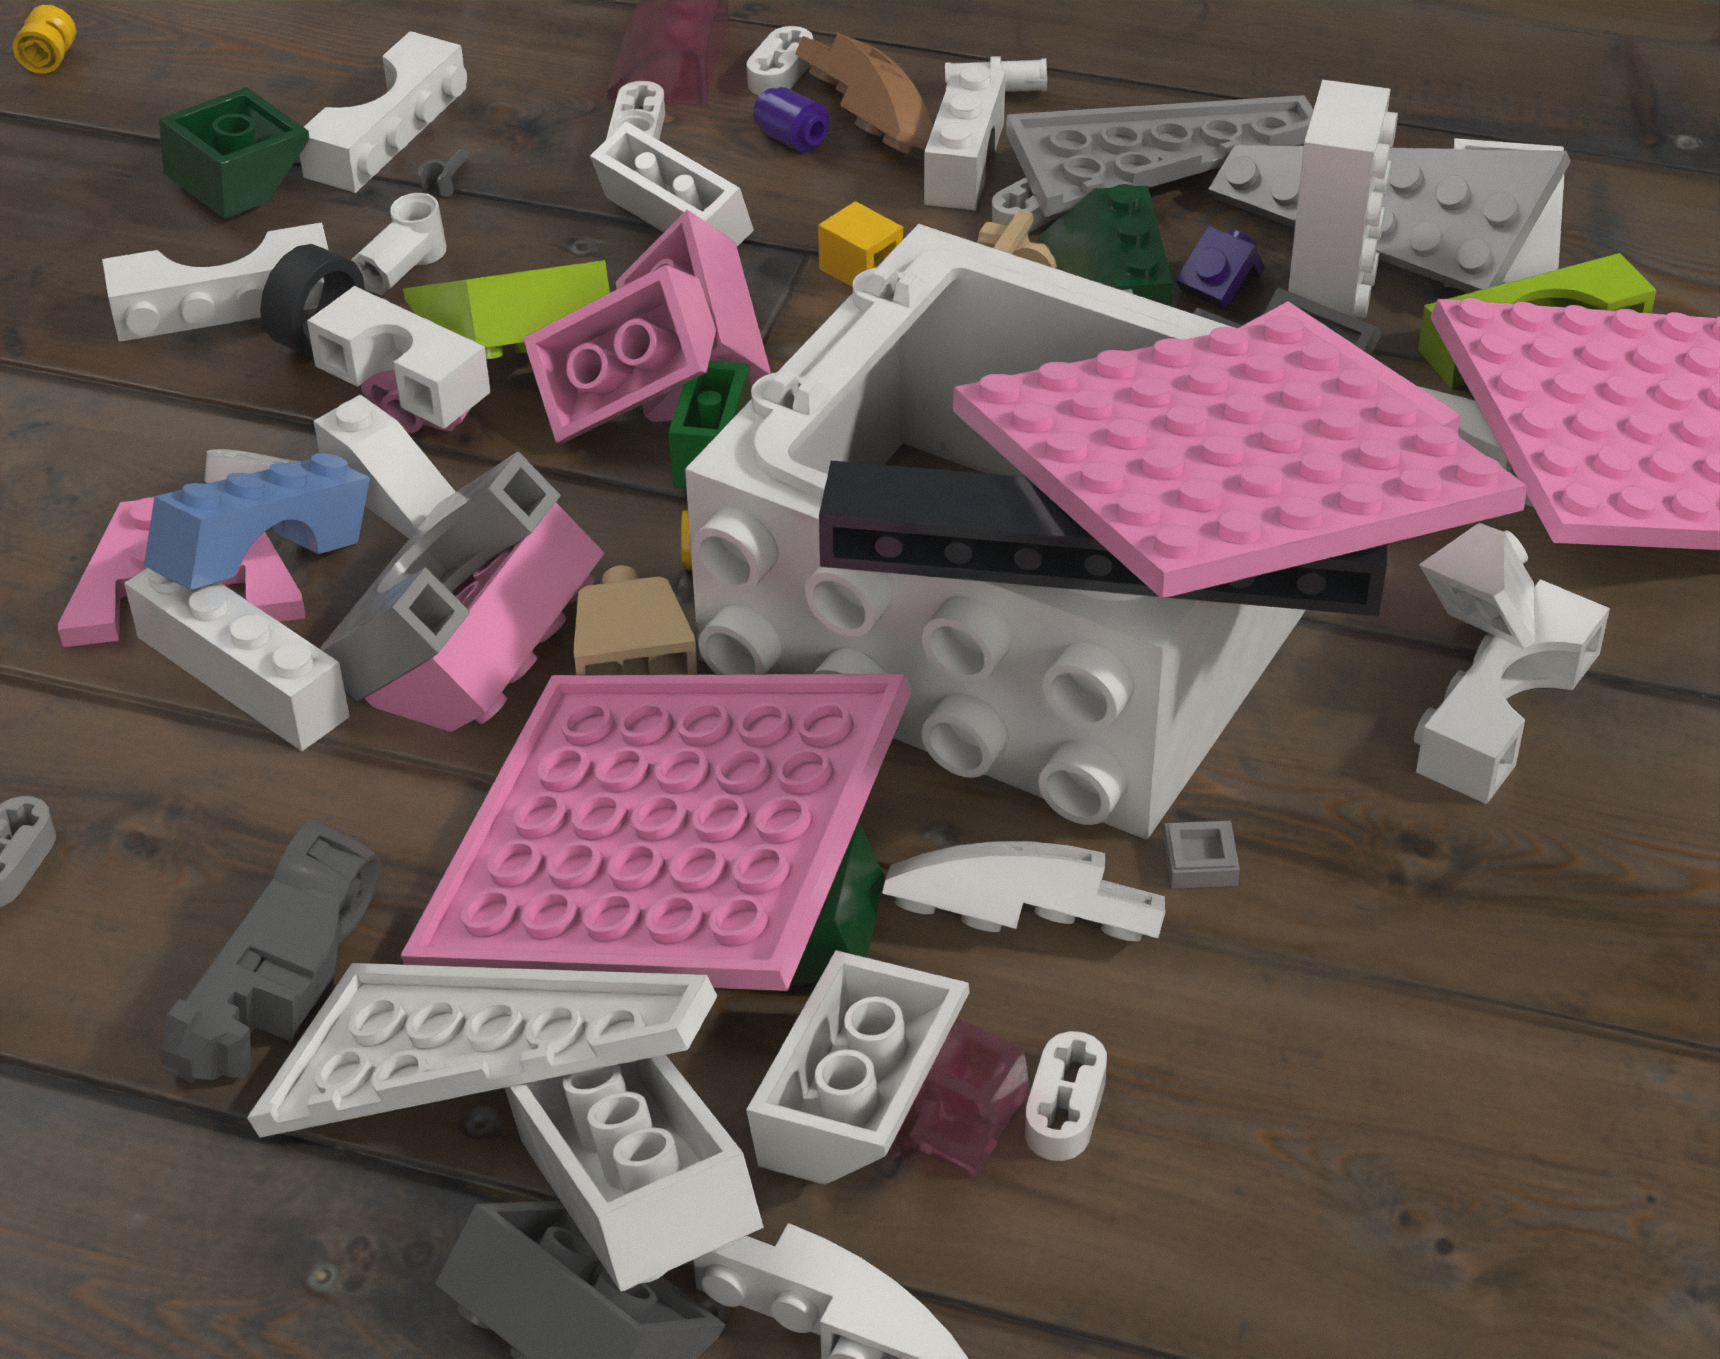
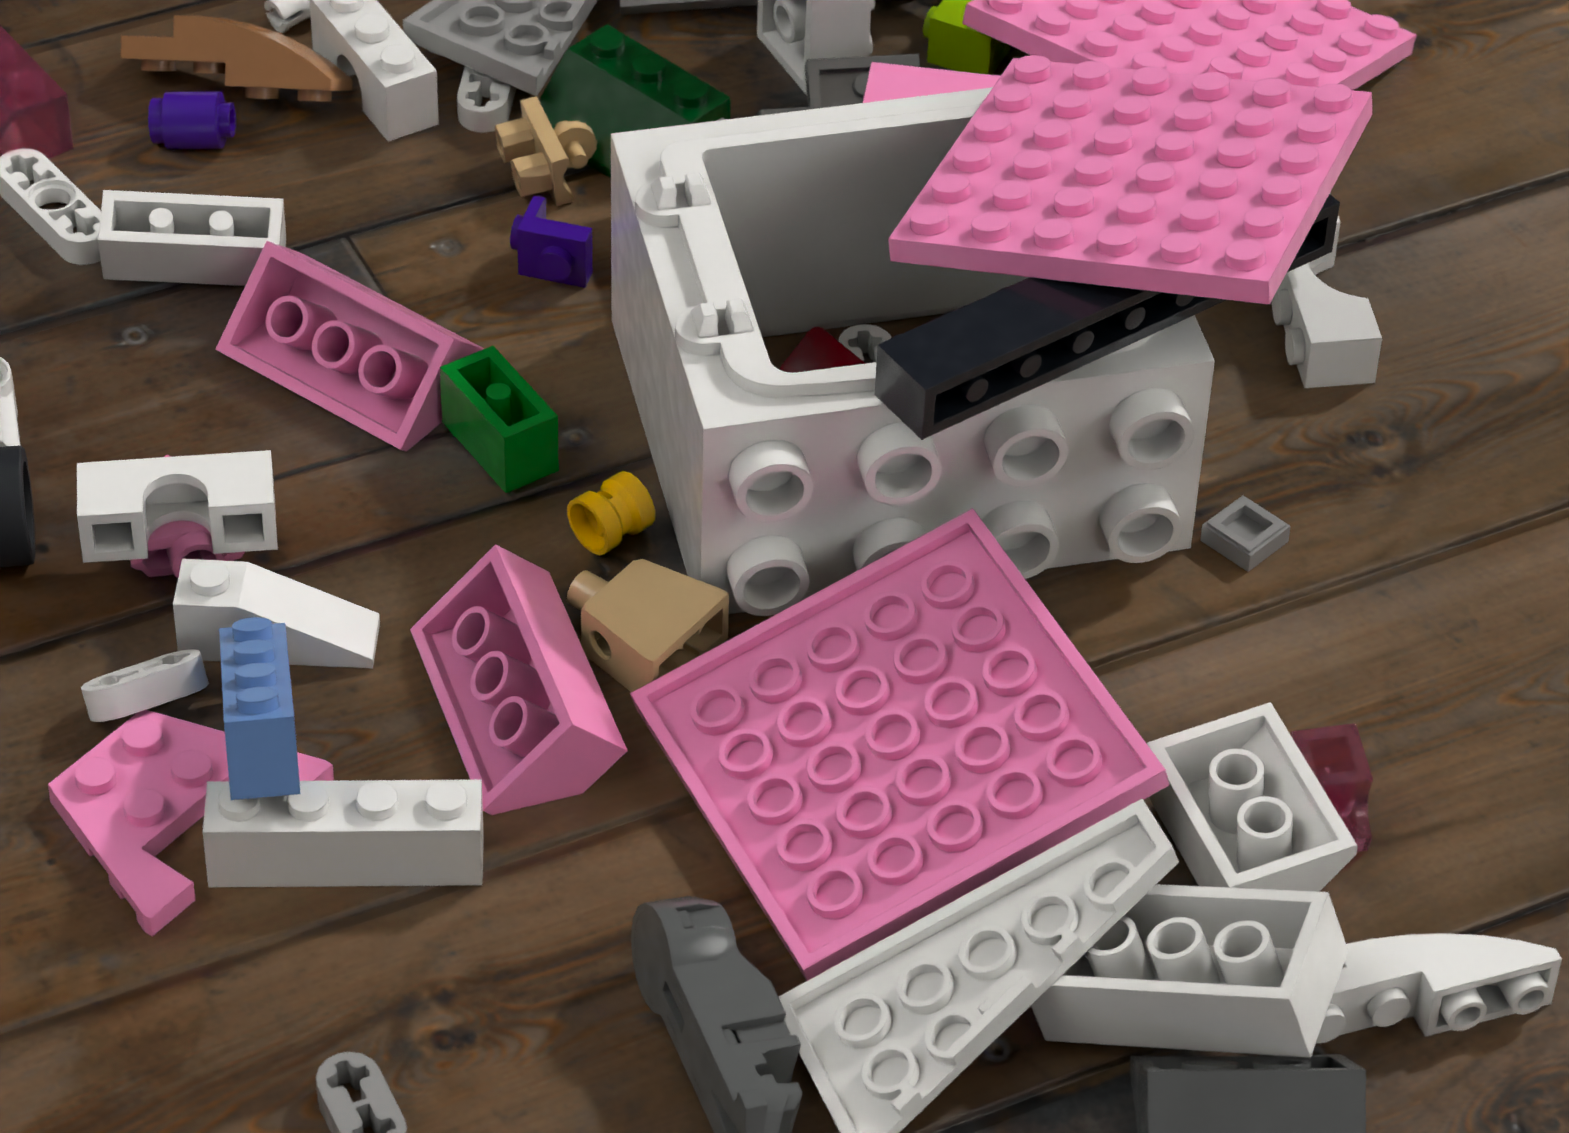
camera: 45 degrees left, 0 degrees up
(411, 603) = (412, 640): light grey arch -> none
(509, 305) = (201, 402): lime slope -> none
(621, 351) = (375, 399): bright pink slope -> none
(775, 60) = (107, 70): white beam -> none
(855, 241) = (405, 204): yellow brick -> none
(996, 878) = (1174, 621): white slope -> none
(1079, 1098) = (1381, 749): white beam -> none
(1220, 266) = (719, 61): bracket -> none

